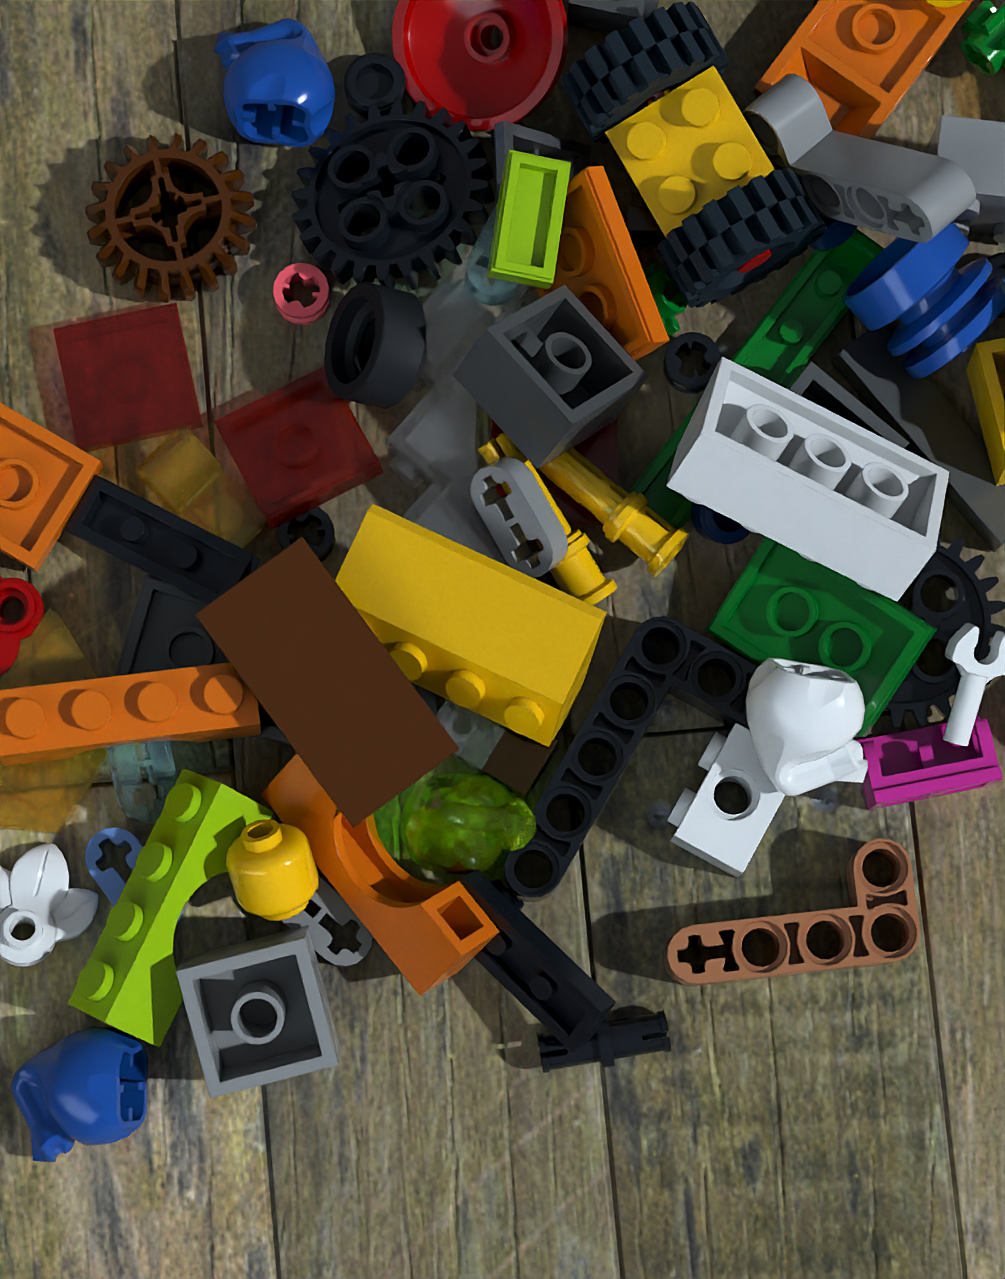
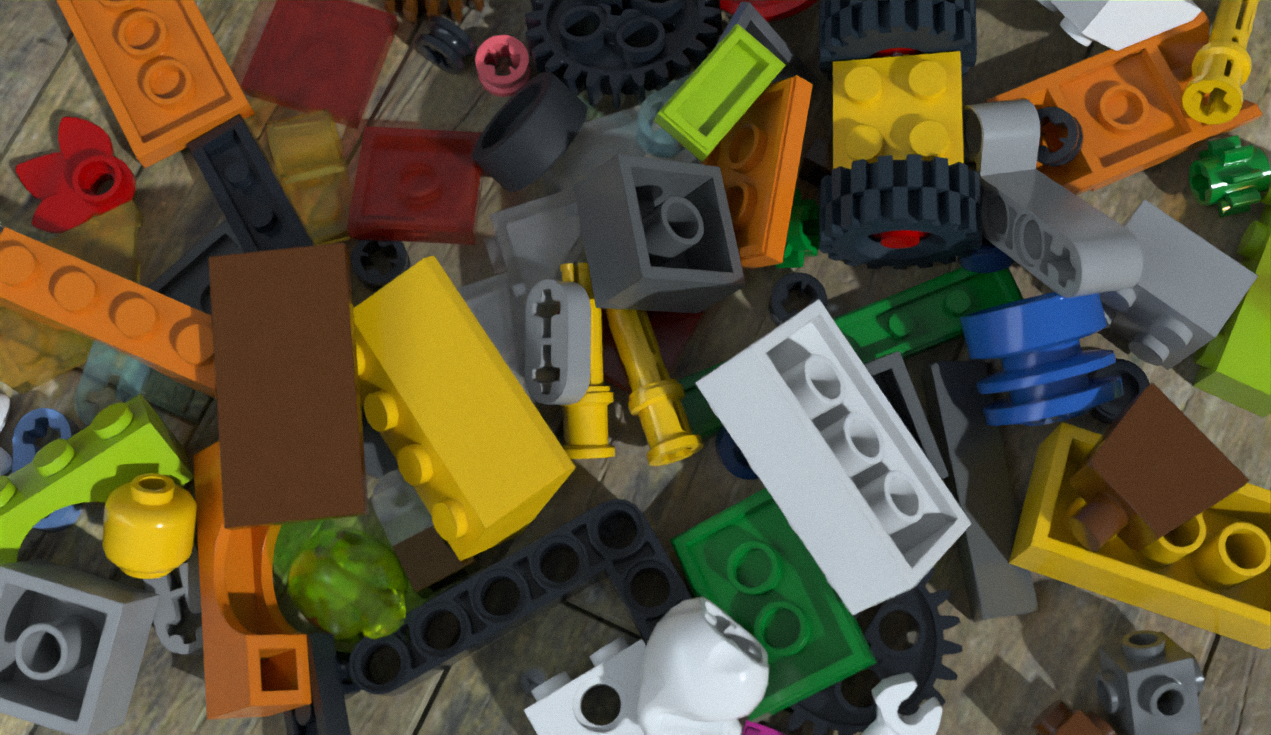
camera: 35 degrees right, 5 degrees down
(240, 305) = (445, 45): none -> black bush
(851, 86) = (1072, 143): none -> black bush

